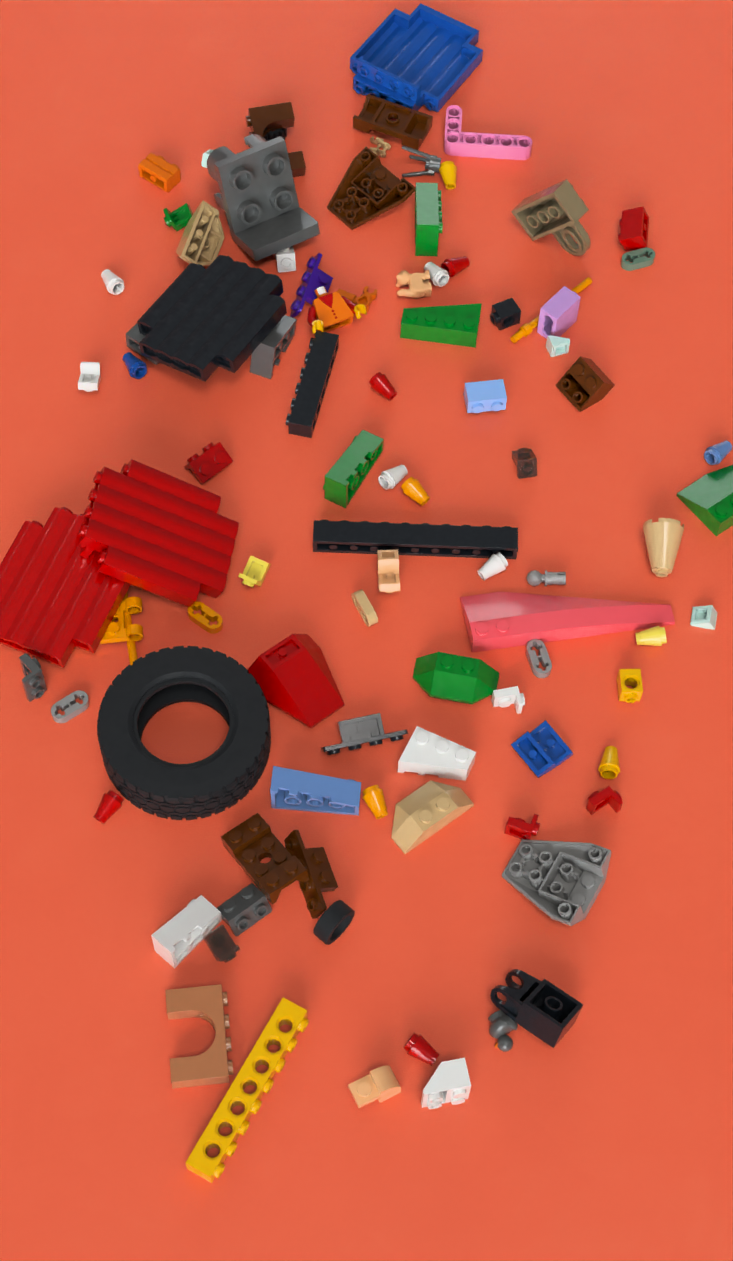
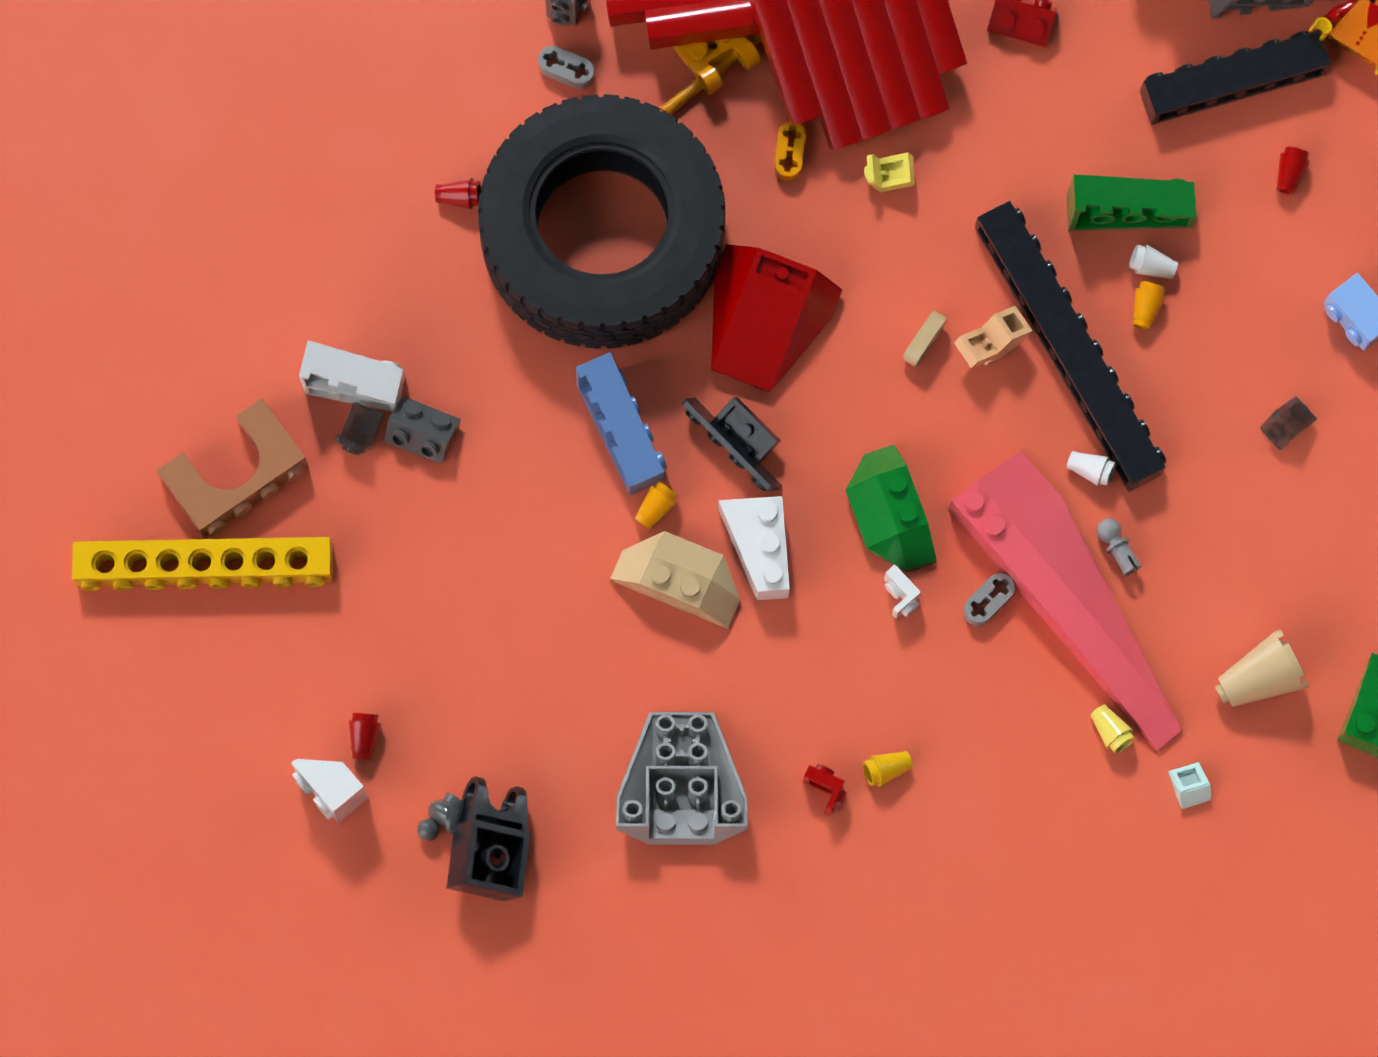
camera: 60 degrees right, 15 degrees up
(253, 842) = (507, 388): reddish brown piece -> none
(319, 873) = (518, 483): reddish brown bracket -> none
(333, 922) = (459, 542): black tyre -> none
(379, 1085) = (284, 705): light nougat brick -> none
(520, 829) = (723, 699): red bracket -> none
(542, 749) = (856, 672): blue slope -> none
(633, 678) = (1026, 726): yellow brick -> none

